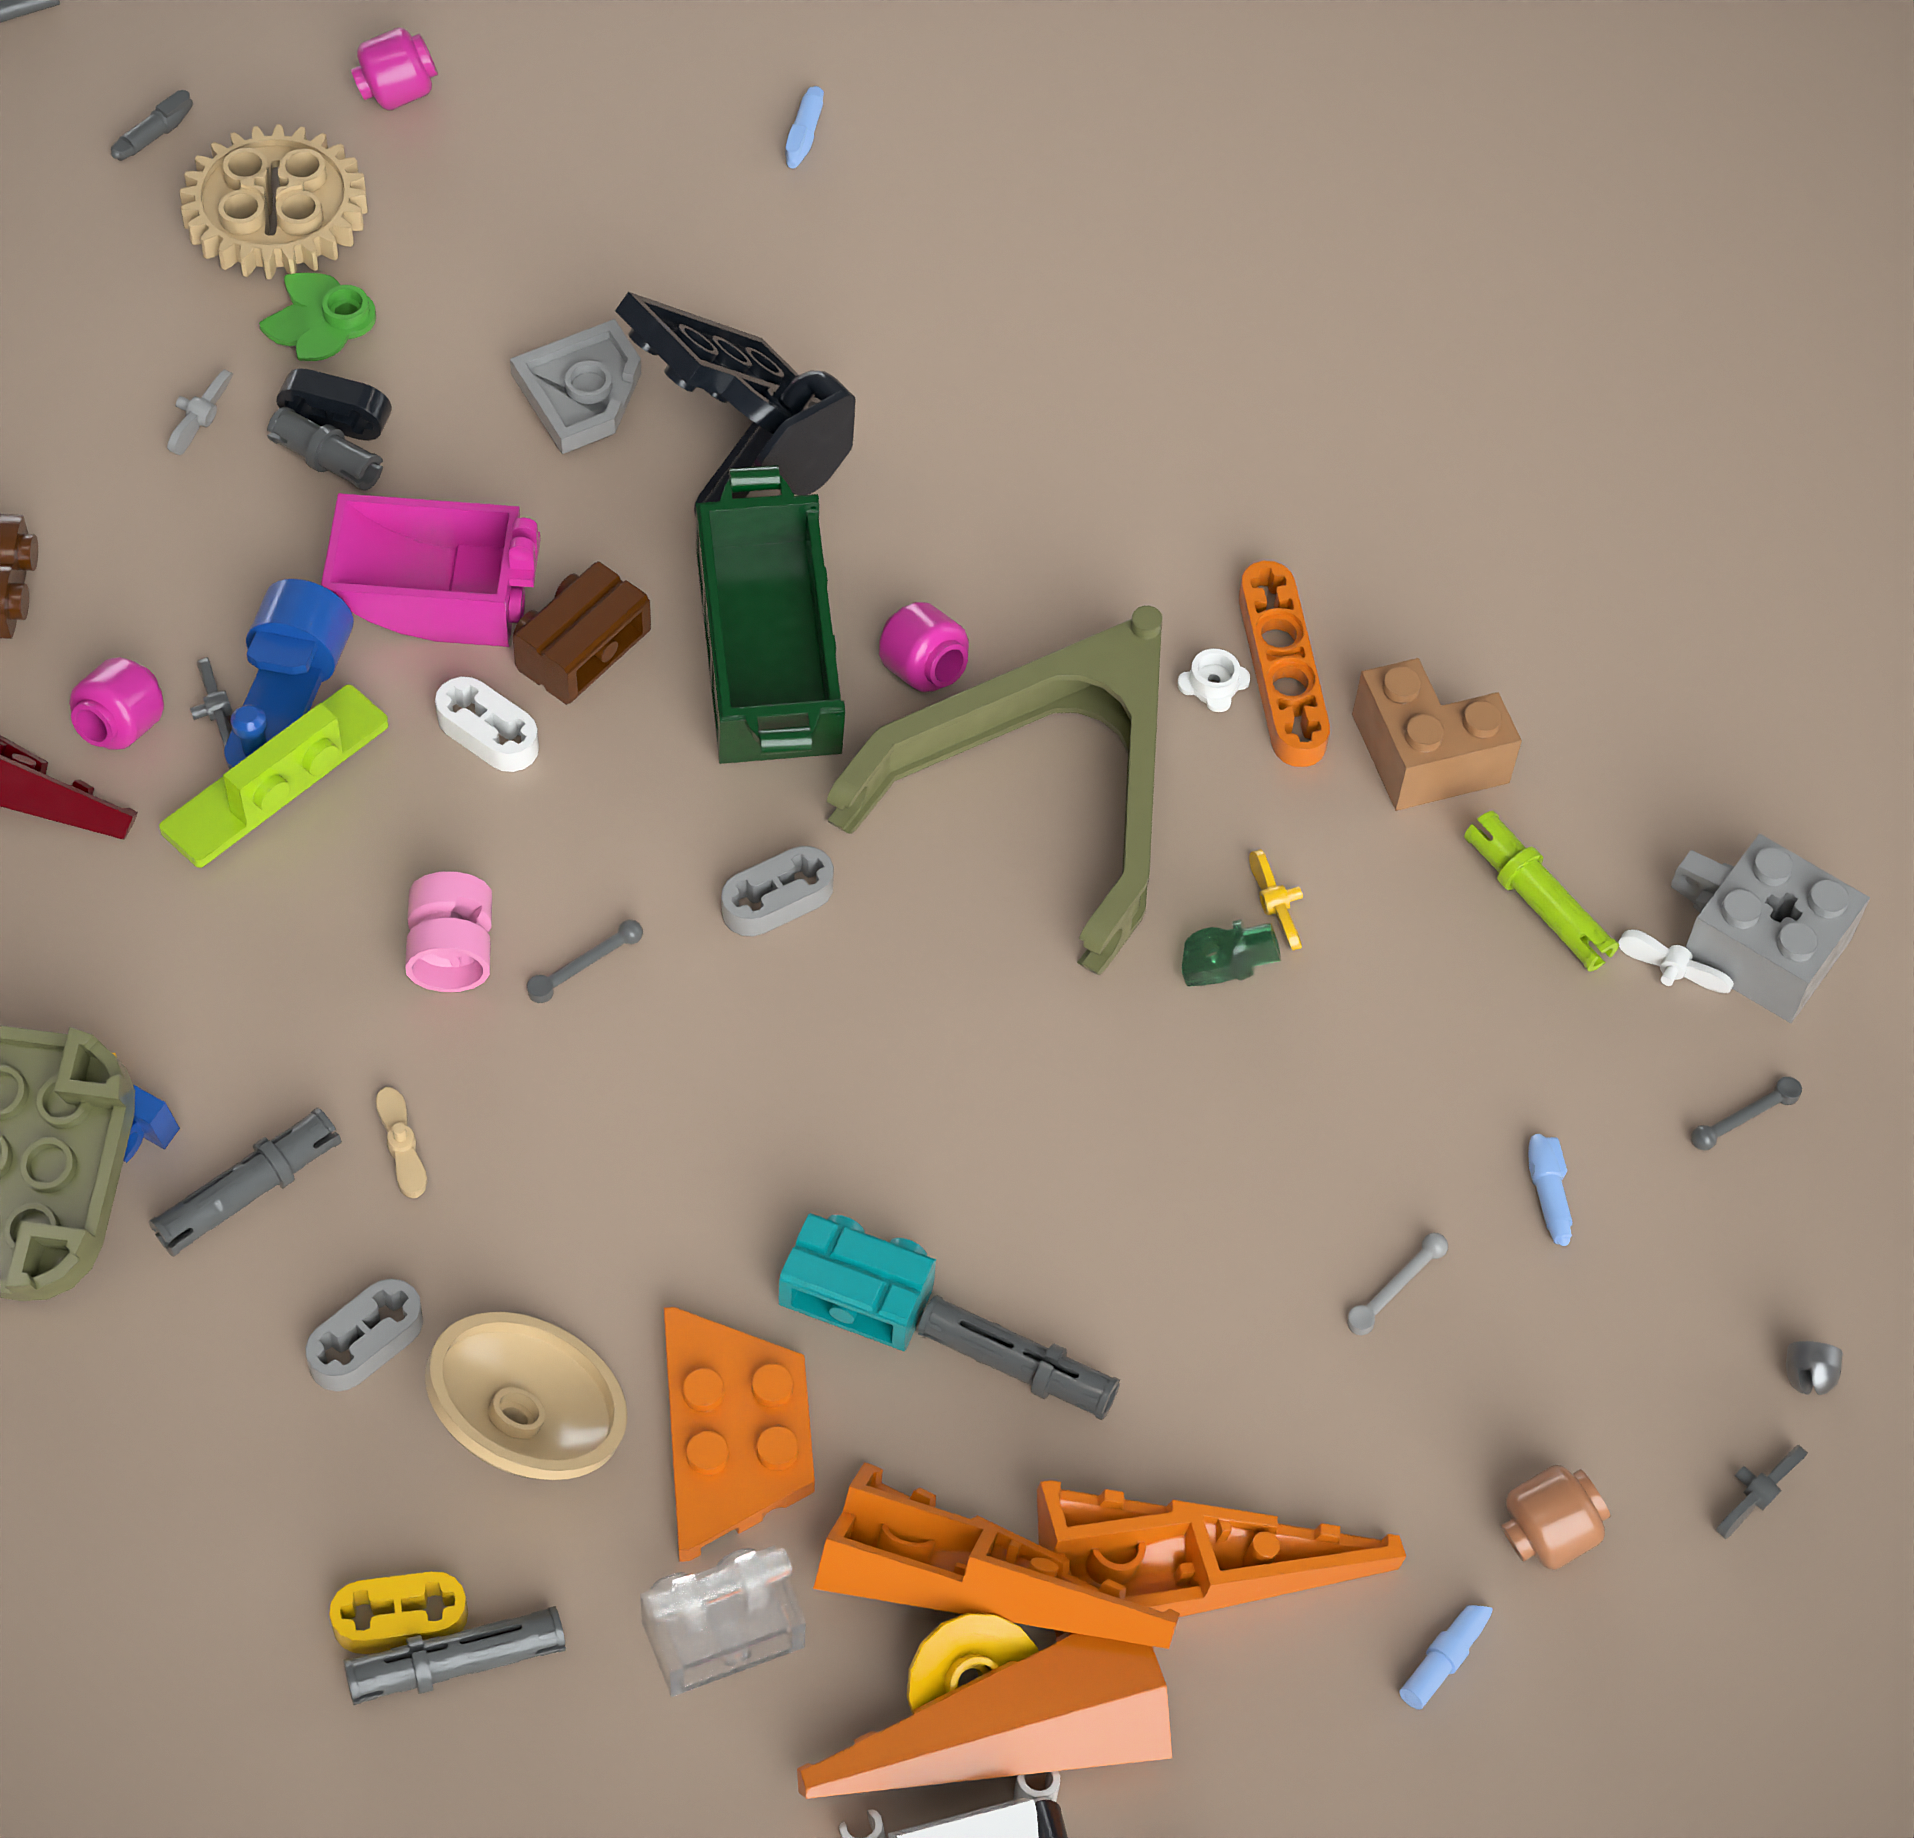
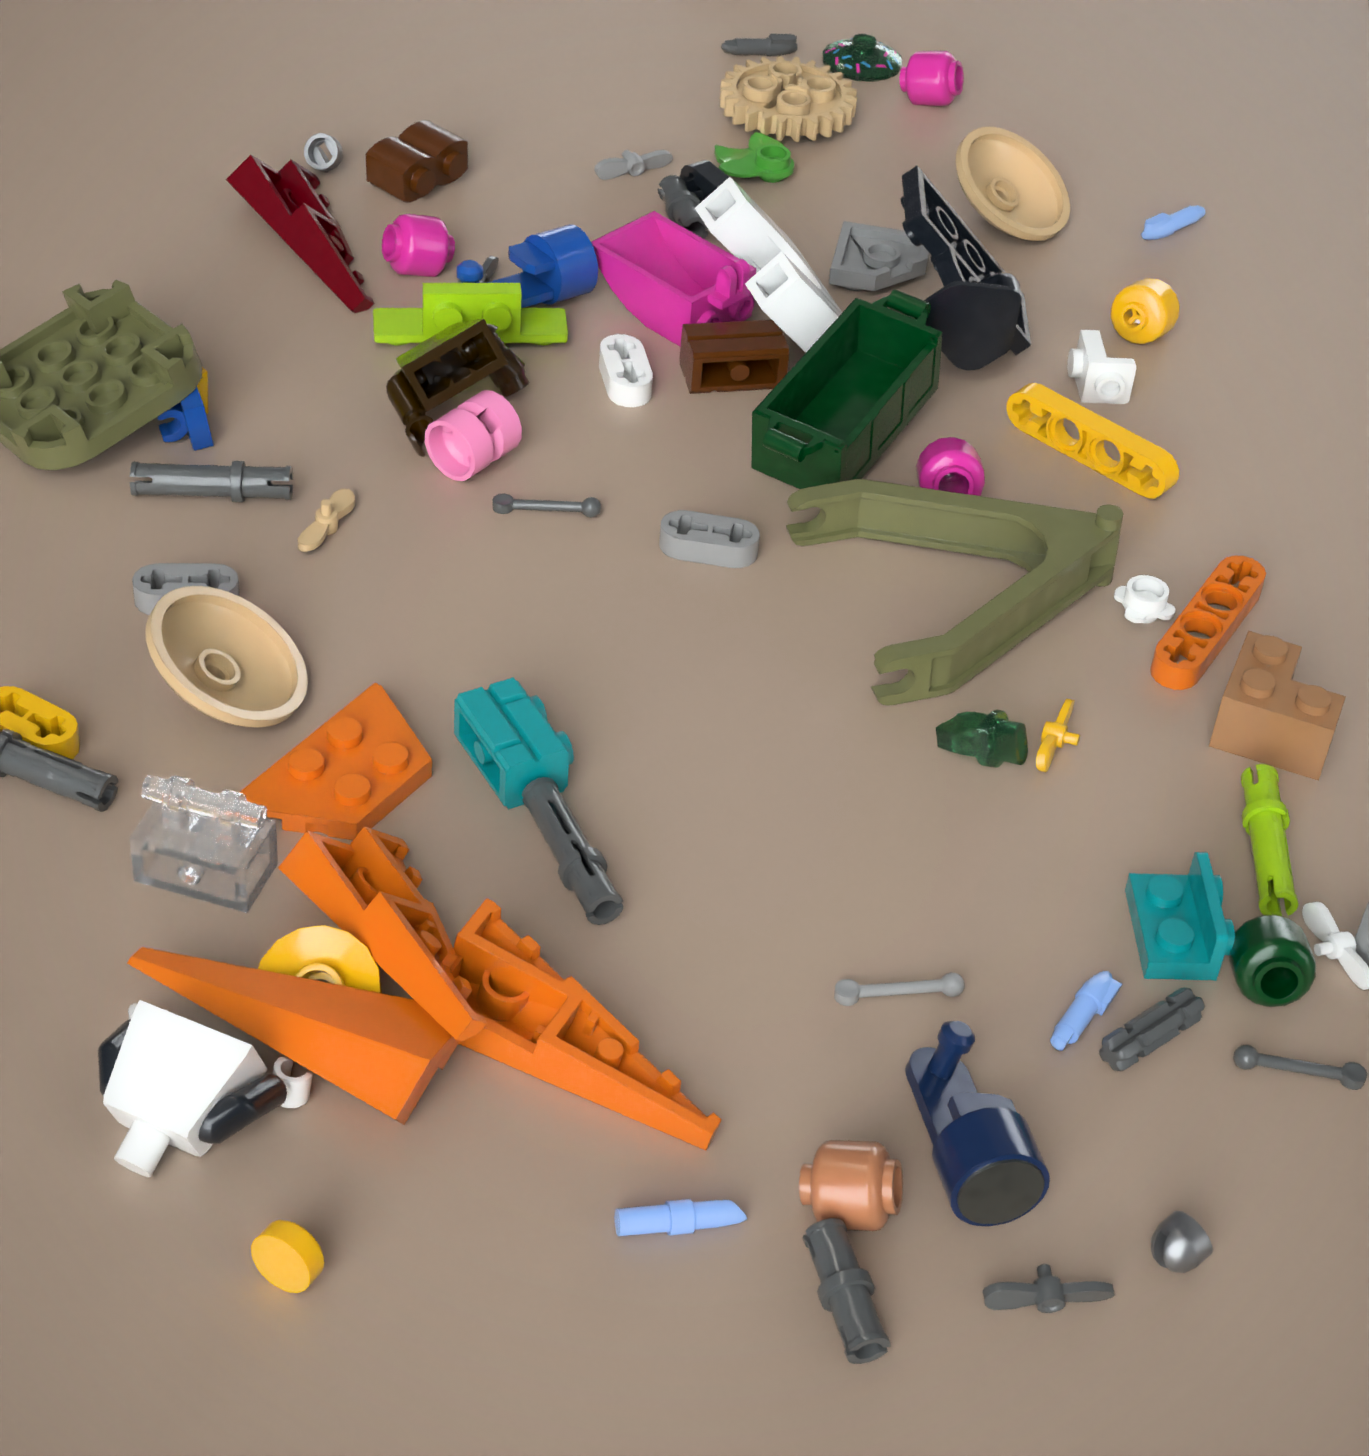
camera: 40 degrees right, 15 degrees down
(274, 74) = (862, 58): none -> clear green dish
(346, 870) = (447, 367): none -> dark brown torso
(600, 523) = (783, 278): none -> white arch
(635, 193) = (1012, 184): none -> tan dish
(903, 283) = (1145, 311): none -> yellow head
(926, 409) = (1100, 377): none -> white bracket
(1087, 512) = (1030, 413): none -> yellow beam
(1547, 1035) = (1180, 922): none -> teal bracket
(1613, 1397) = (977, 1138): none -> dark blue piece
(1618, 1168) = (1151, 1029): none -> dark grey axle
(1632, 1616) = (846, 1291): none -> dark grey pin
(1655, 1026) = (1272, 961): none -> dark green head

